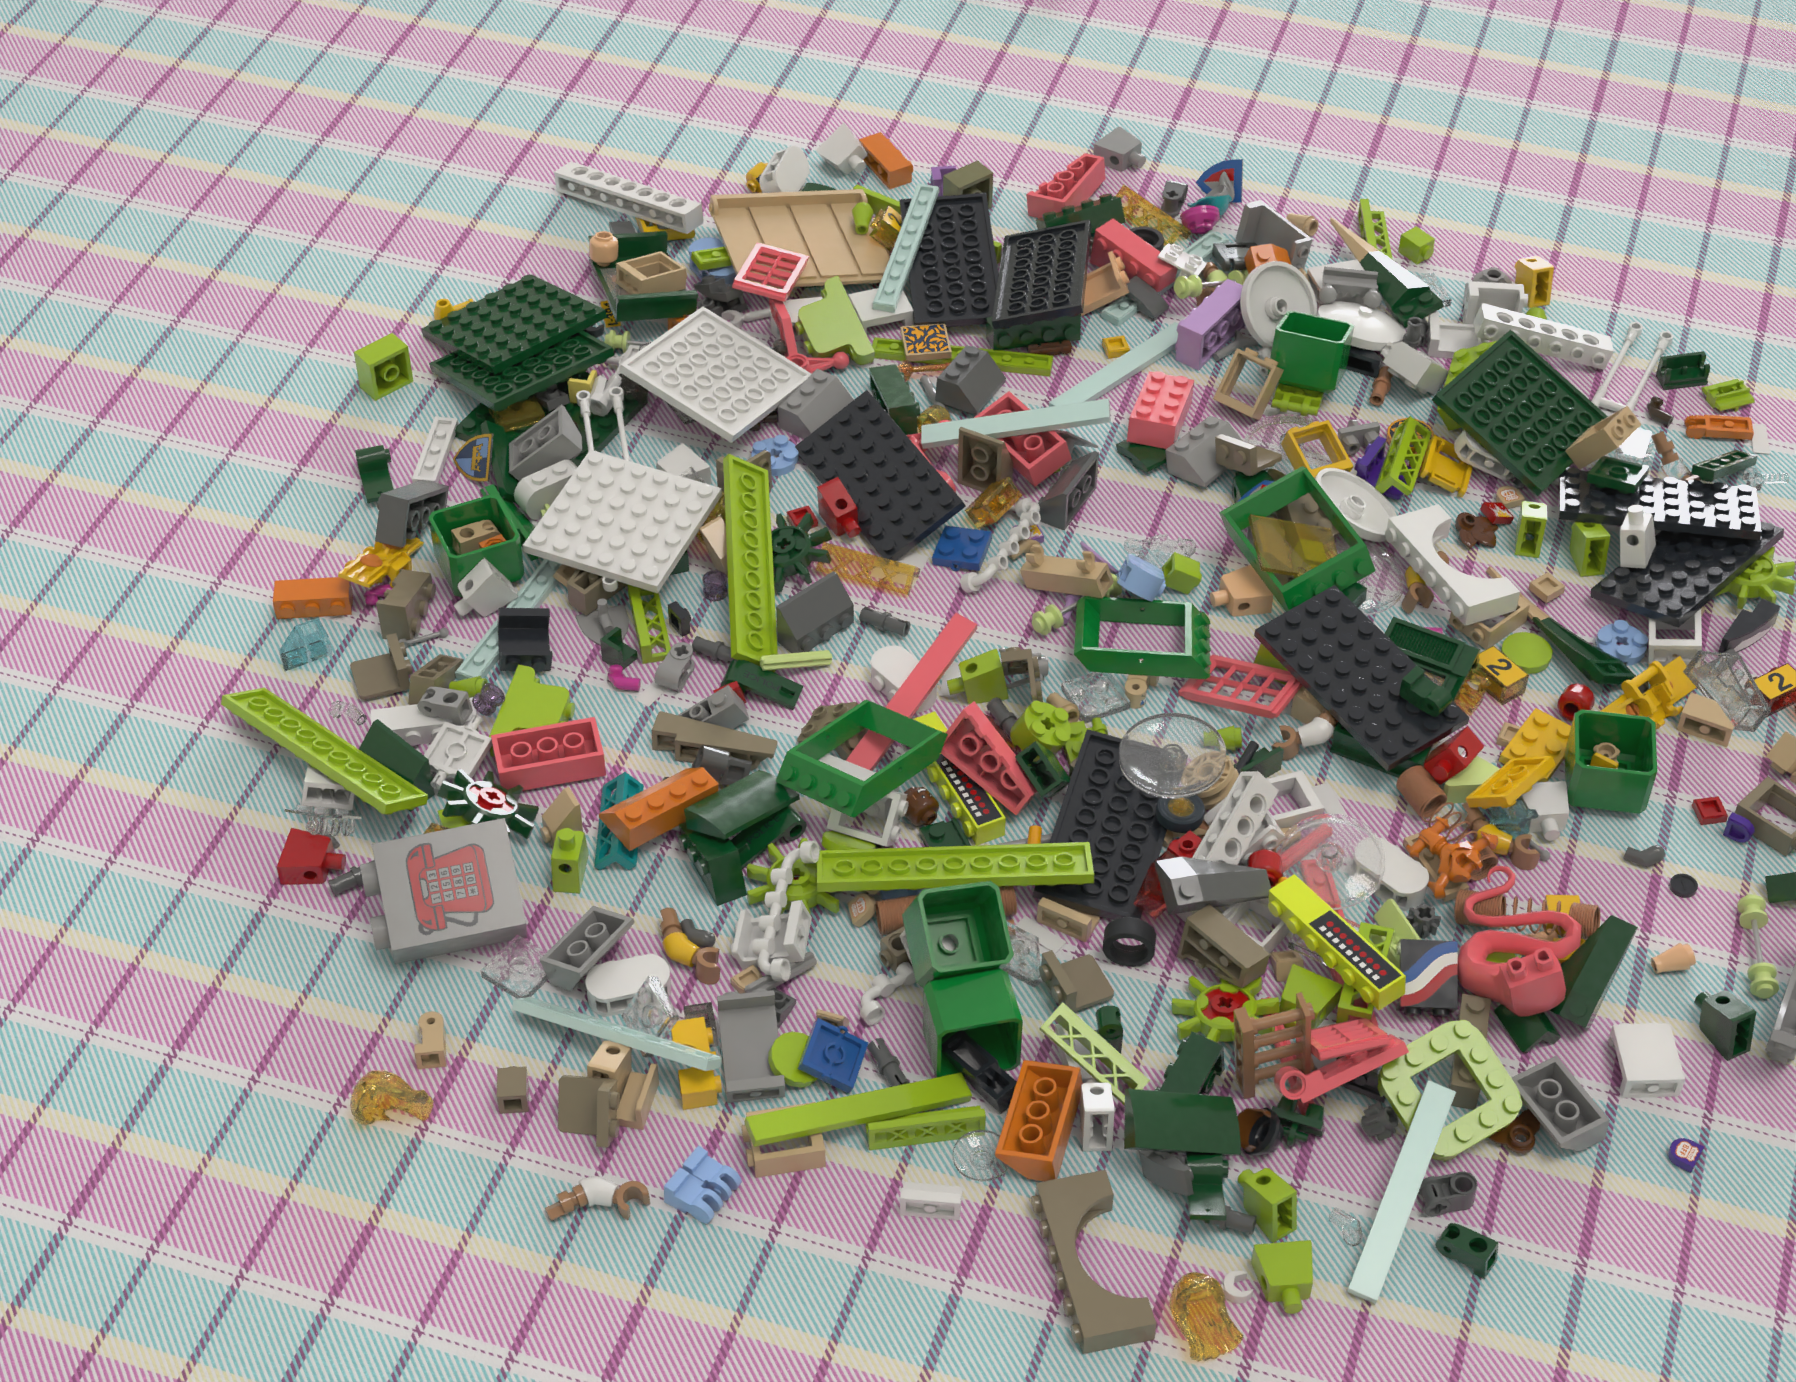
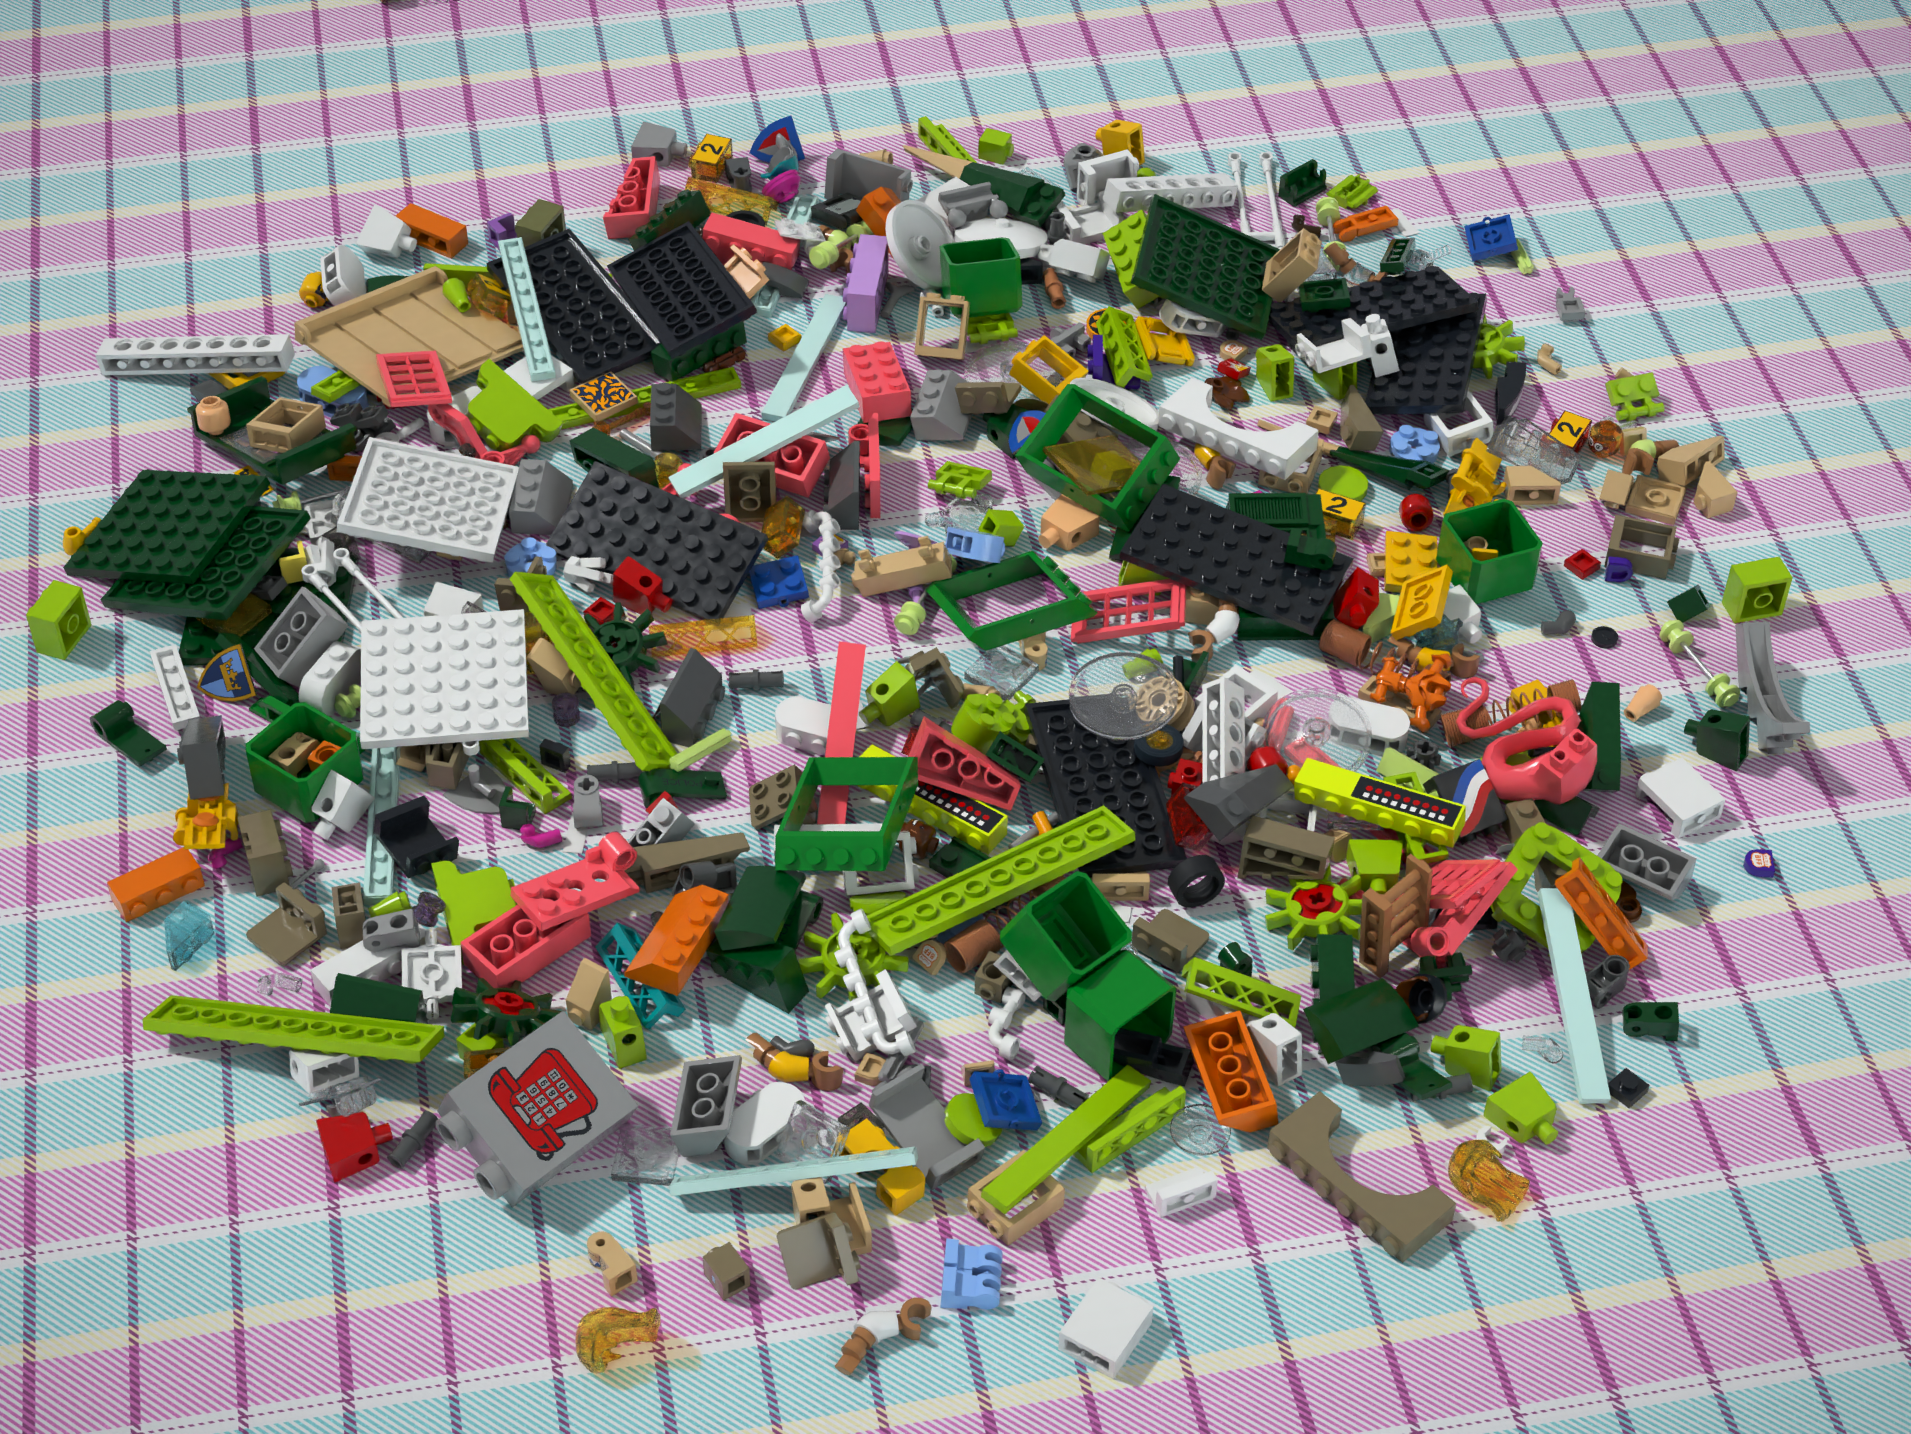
camera: 30 degrees left, 0 degrees up
(644, 717) = (604, 862): none -> coral hinge
(781, 1283) = (1105, 1327): none -> white brick
(806, 479) = (579, 569): none -> white rock
(1105, 478) = (869, 459): none -> coral hinge
(1153, 176) = (709, 158): none -> brick
(1179, 519) = (960, 480): none -> lime plate
(1402, 1298) = (1628, 1088): none -> black plate
(1475, 1132) = (1601, 914): none -> orange fence
(1576, 606) = (1357, 423): none -> dark tan slope
(1588, 530) = (1350, 349): none -> white panel
(1688, 405) = (1327, 215): none -> yellowish green axle

